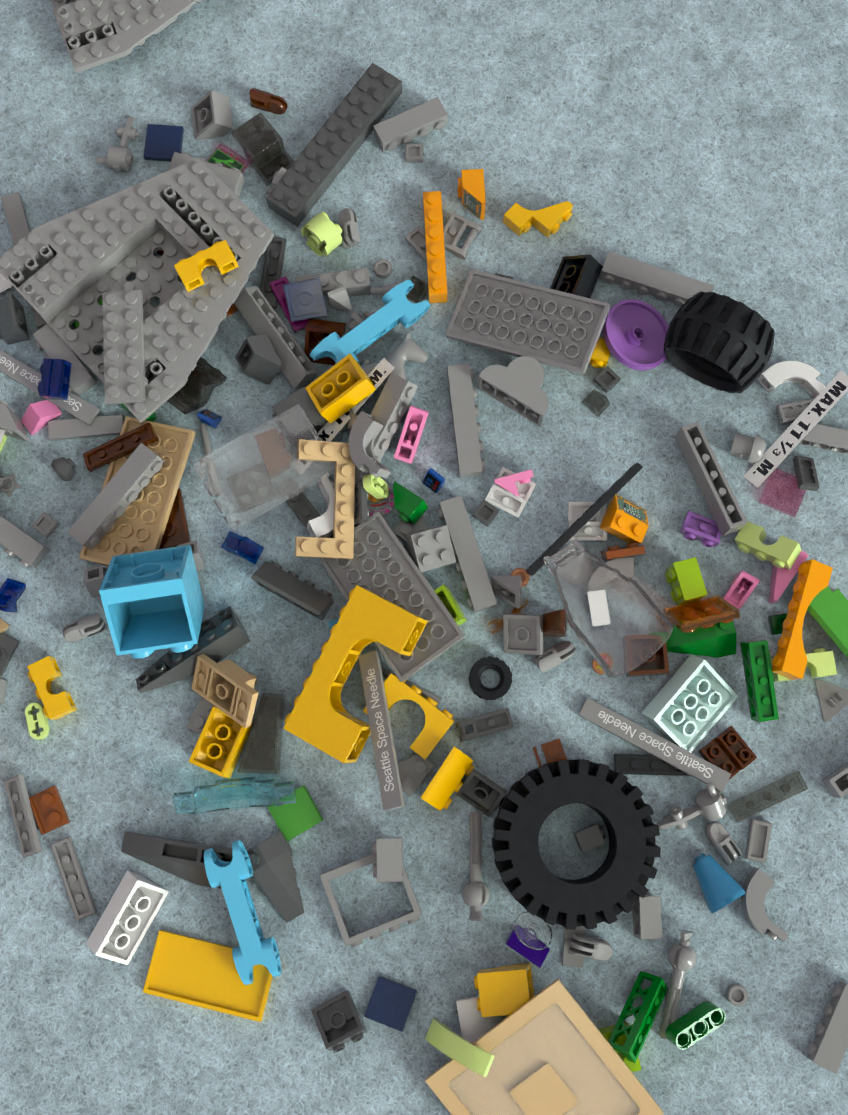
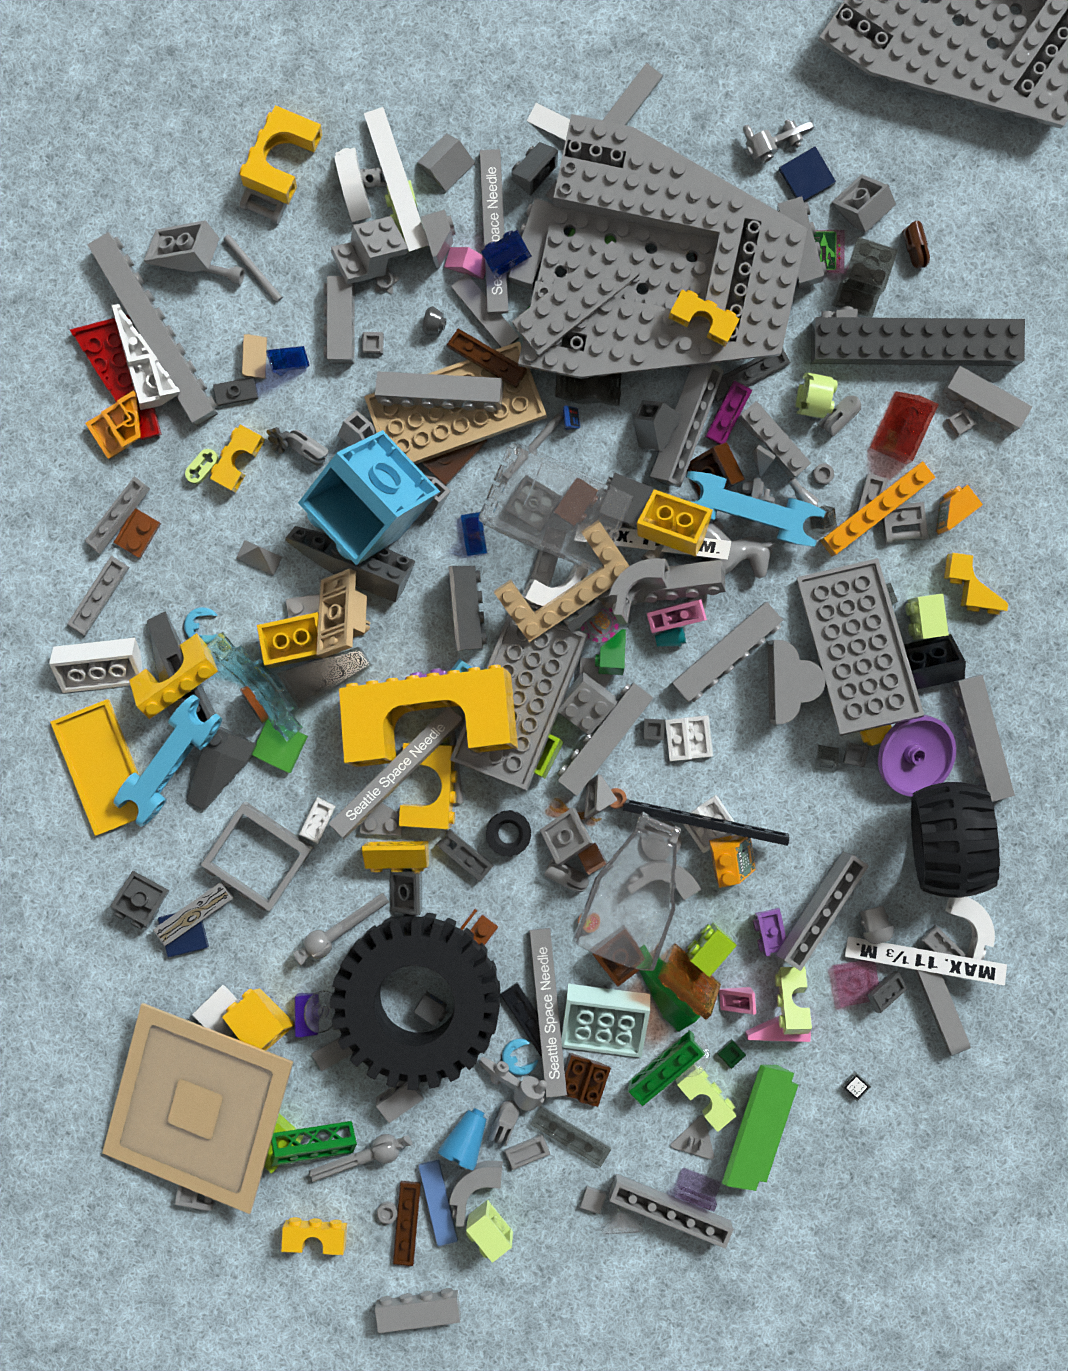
camera: 55 degrees right, 10 degrees up
(61, 646) = (278, 438): none -> dark grey plant
(138, 725) = (259, 557): none -> light grey slope
(151, 819) = (190, 625): none -> medium azure head
(185, 882) = (197, 667): none -> yellow arch
(251, 809) = (254, 704): none -> dark orange tile
(305, 299) = (740, 426): dark blue tile -> none
(375, 486) = (605, 617): yellowish green beam -> none
(375, 822) = (317, 820): none -> white plate
(380, 983) = (193, 913): none -> light grey tile
(389, 191) = (904, 426): none -> clear red slope
(389, 859) = (292, 856): light grey brick -> none
(425, 454) = (671, 637): none -> teal cone
(433, 480) = (651, 662): slope -> none
(459, 1048) = (184, 1014): yellowish green slope -> none
(509, 482) = (697, 732): bright pink slope -> none
(538, 261) = (927, 617): none -> yellowish green brick
(590, 948) = (340, 1068): light grey arm -> none
(598, 608) = (633, 888): white sticker -> none
(616, 552) = (700, 875): dark orange plate -> none
(689, 796) = (511, 1060): none -> medium azure head
(705, 1016) = (338, 1194): green beam -> none
(705, 1084) = (331, 1234): none -> yellow arch
(755, 945) = (438, 1202): none -> medium blue tile
(756, 984) = (407, 1223): none -> reddish brown tile
(790, 656) = (704, 1083): light orange arch -> none
(806, 916) = (489, 1231): none -> yellowish green brick
(831, 814) = (593, 1199): none -> light grey tile

